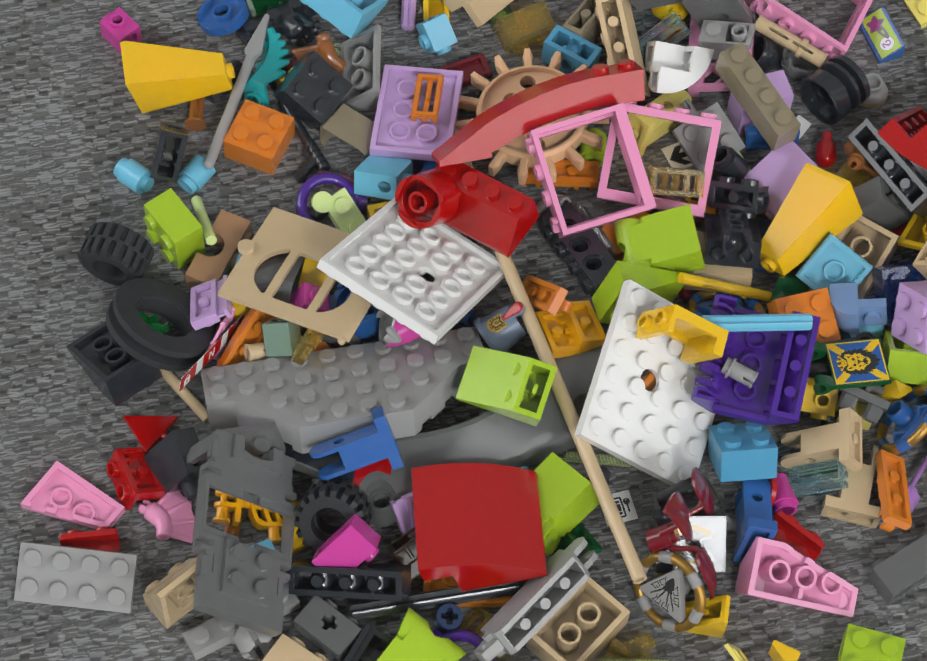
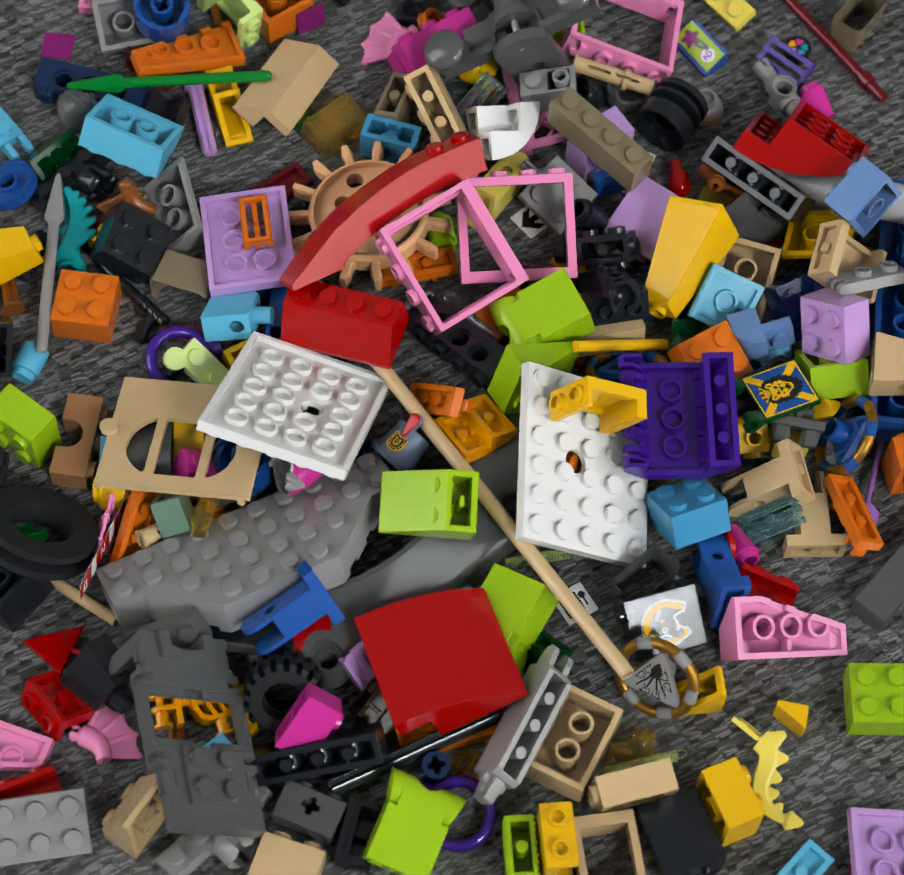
camera: 15 degrees left, 0 degrees up
(203, 219) = (48, 403): yellowish green bar -> none
(206, 305) = (83, 499): lavender plate -> none
(427, 199) = (288, 328): red brick -> none
(436, 34) = (243, 153): medium azure brick -> none
(652, 172) = (565, 247): clear yellow slope -> none
(668, 534) = (640, 619): dark red plant -> none
(739, 372) = (664, 430): light grey pin -> none
(762, 322) = (677, 371): medium azure axle -> none

